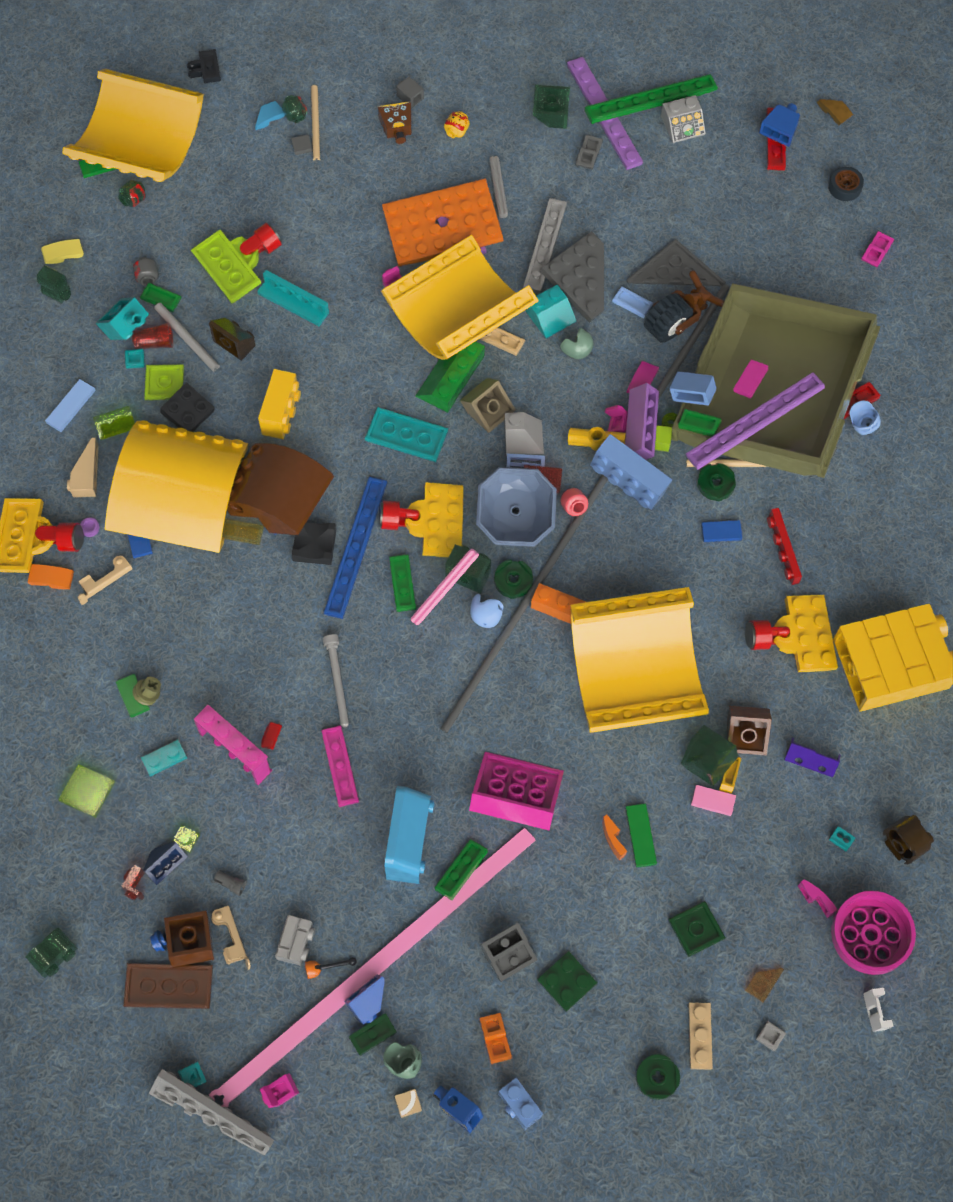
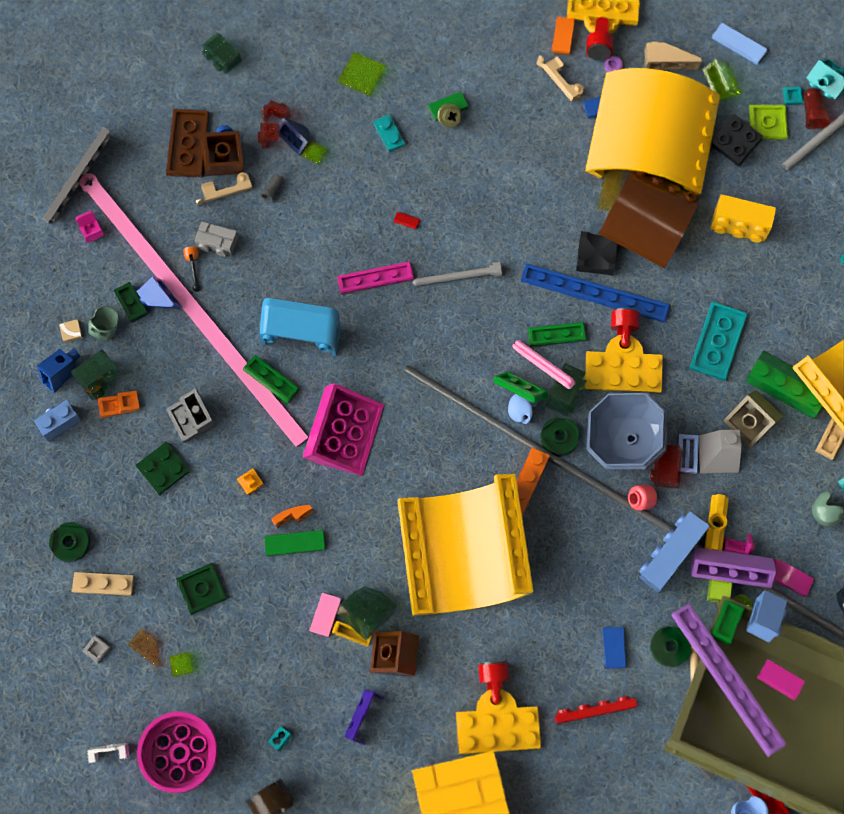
camera: 95 degrees right, 5 degrees up
(164, 887) = (268, 133): none -> clear red bracket
(192, 1074) = (110, 161): teal tile -> none
(232, 337) = (818, 177): dark brown slope -> none
(239, 746) = (391, 182): dark pink window -> none
(467, 611) = (520, 387): none -> green tile
(467, 1059) = (95, 374): none -> clear green slope
(577, 885) = (250, 481): none -> light orange tile
(778, 944) = (181, 664): none -> clear neon green plate
(813, 893) = (225, 701): dark pink slope -> none

